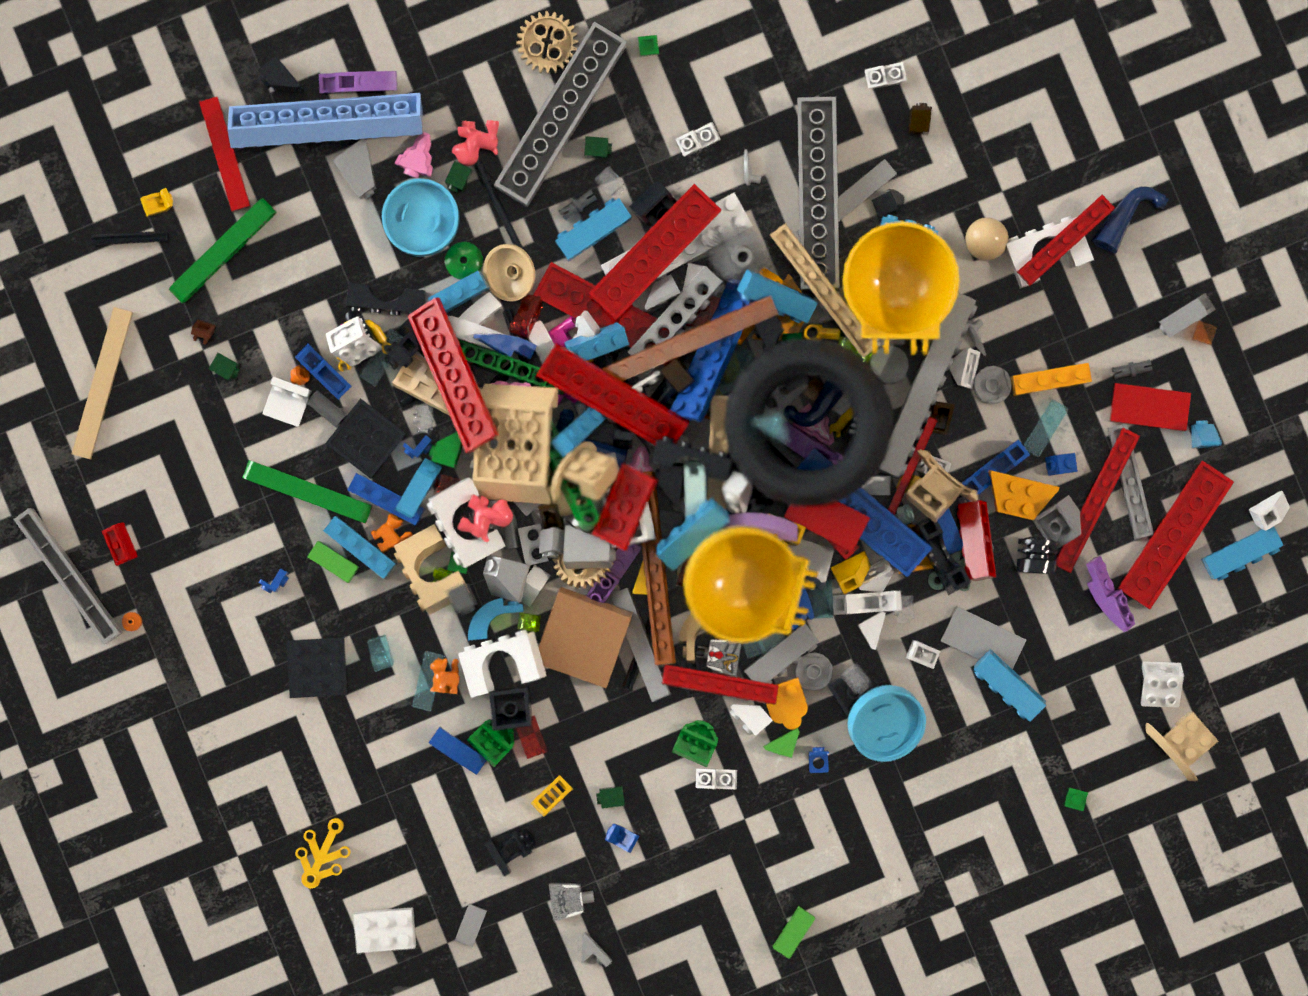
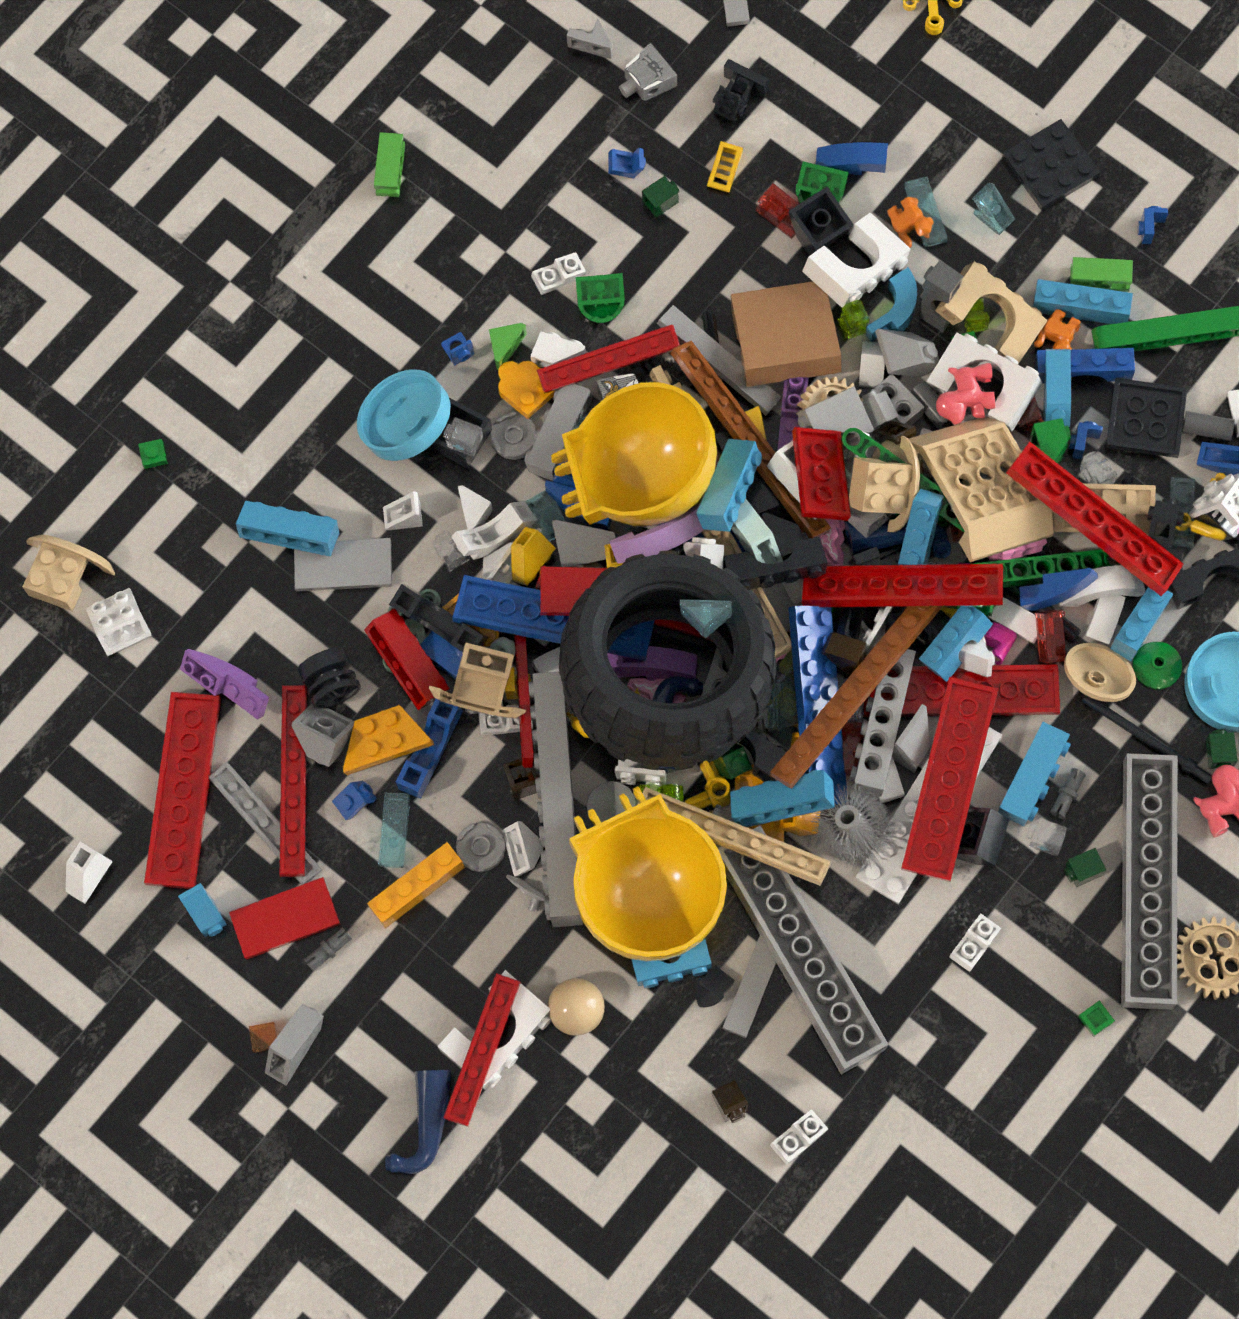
camera: 160 degrees right, 15 degrees down
(748, 177) = (891, 930): light grey bar -> none
(1242, 552) = (96, 808): dark azure brick -> none

